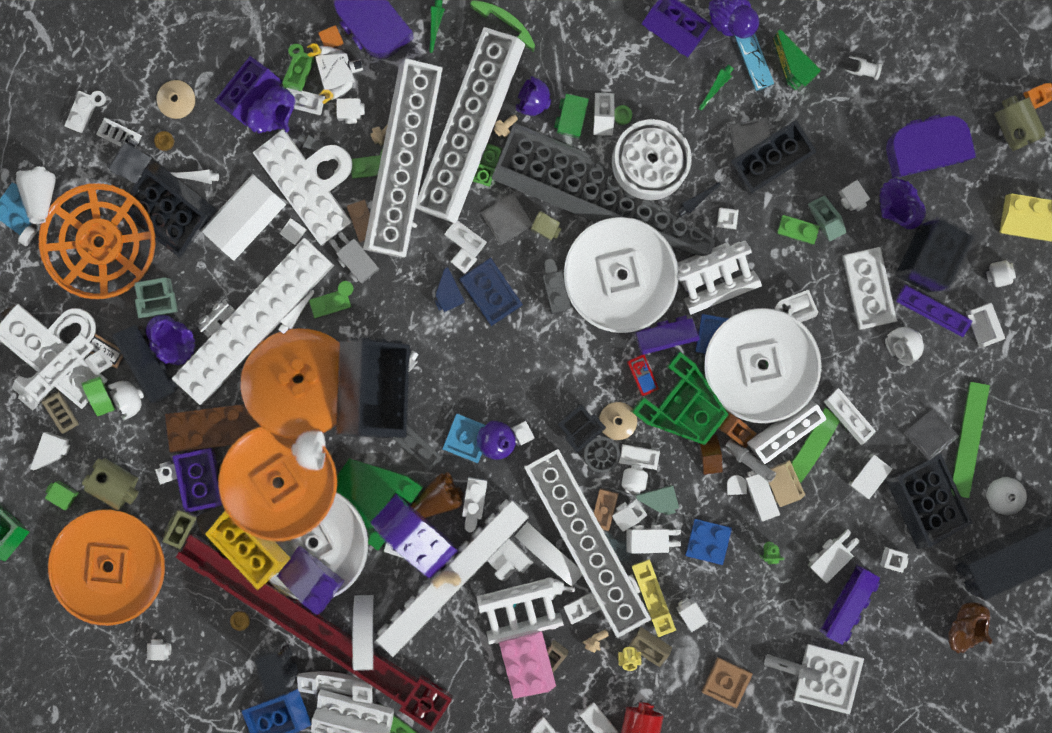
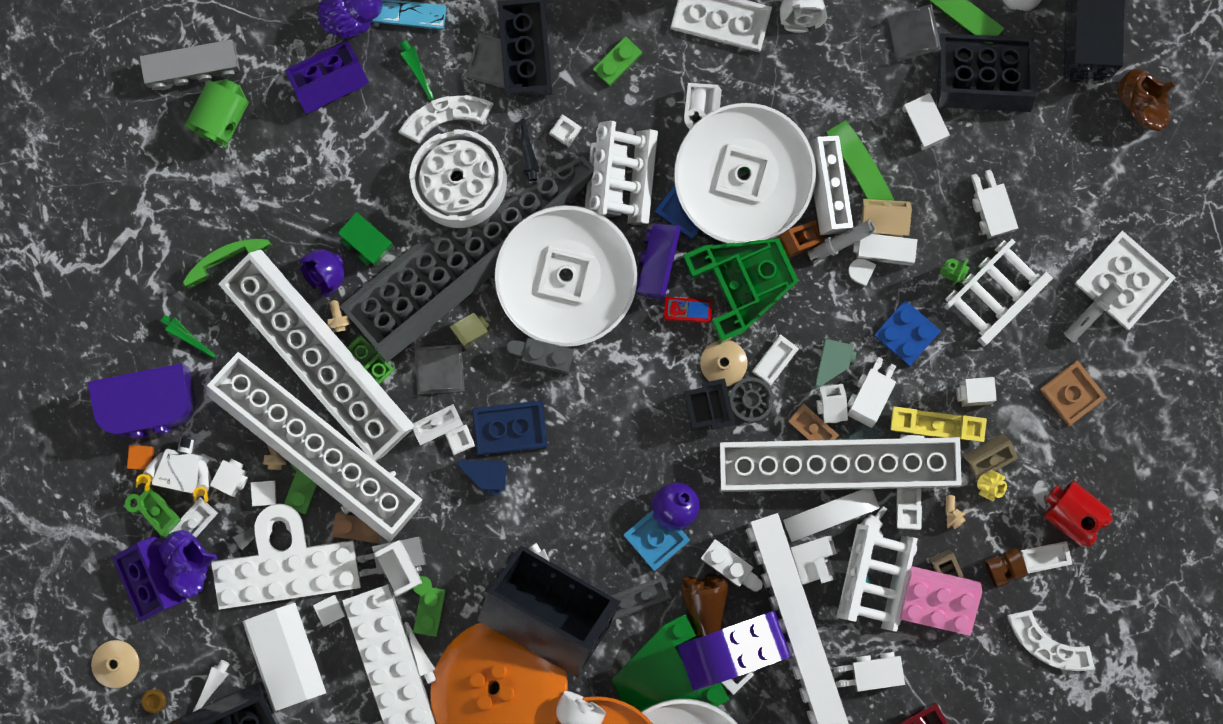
camera: 60 degrees left, 5 degrees down
(347, 266) = (398, 568): none -> white panel
(351, 140) = (263, 493): none -> white tile
(446, 577) = (797, 636): tan arm -> none
(451, 642) = (873, 673): none -> white hinge
(522, 433) = (683, 473): white brick -> none
(575, 698) = (1006, 567): none -> reddish brown wheel
(603, 114) = (381, 204): white slope -> none
(622, 115) = (393, 185): bright green tile -> none
(634, 480) = (797, 378): white head -> none
(695, 122) = (442, 111): none -> white tile
(711, 456) = (815, 281): reddish brown slope -> none
(775, 610) = (1019, 298): none -> white fence
(827, 218) = (621, 23): sand green slope -> none
(849, 416) = (849, 110): white plate -> none
(850, 604) = (1055, 215): dark purple slope -> none
(894, 559) = (1030, 142): white brick -> none

